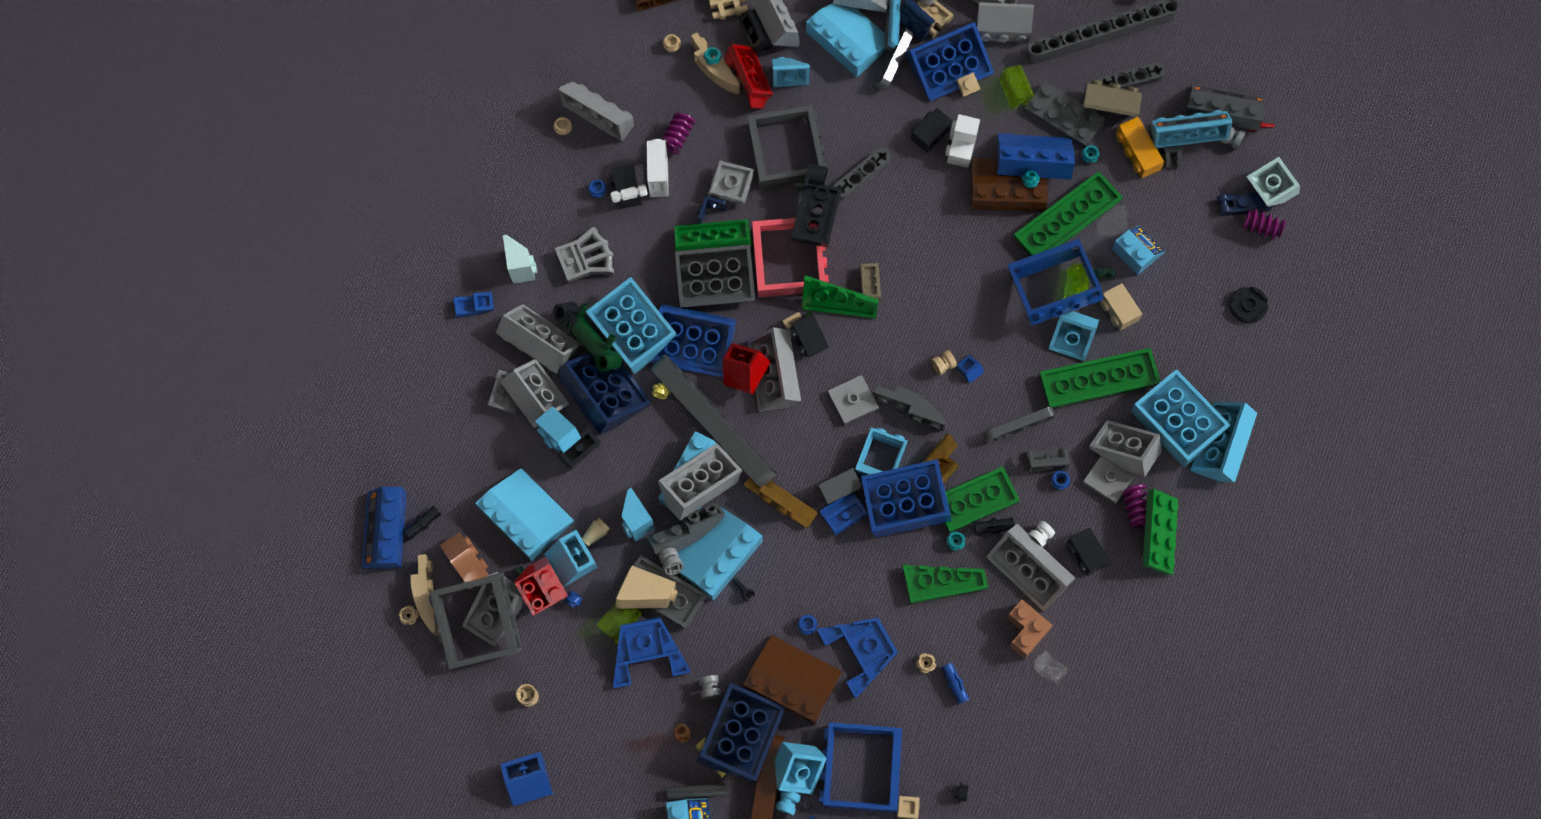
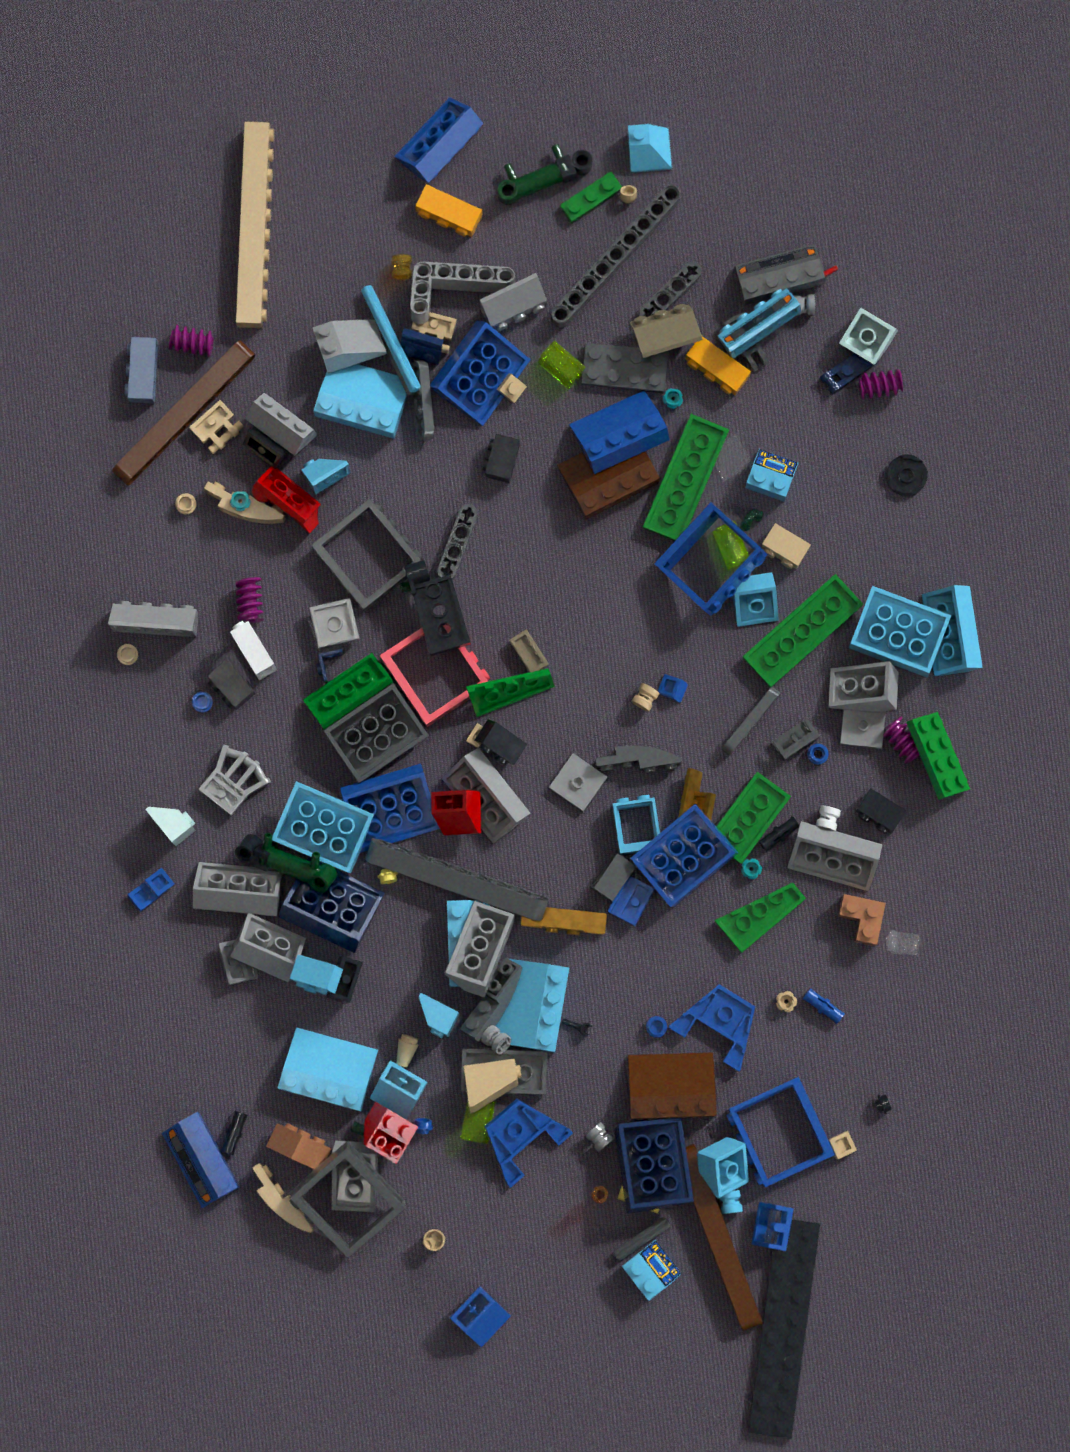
camera: 30 degrees left, 10 degrees up
(408, 610) = (269, 1228): tan plate -> none
(629, 193) = (241, 694): white axle -> none
(963, 140) = (540, 450): white brick -> none
(1030, 179) = (631, 467): teal plate -> none

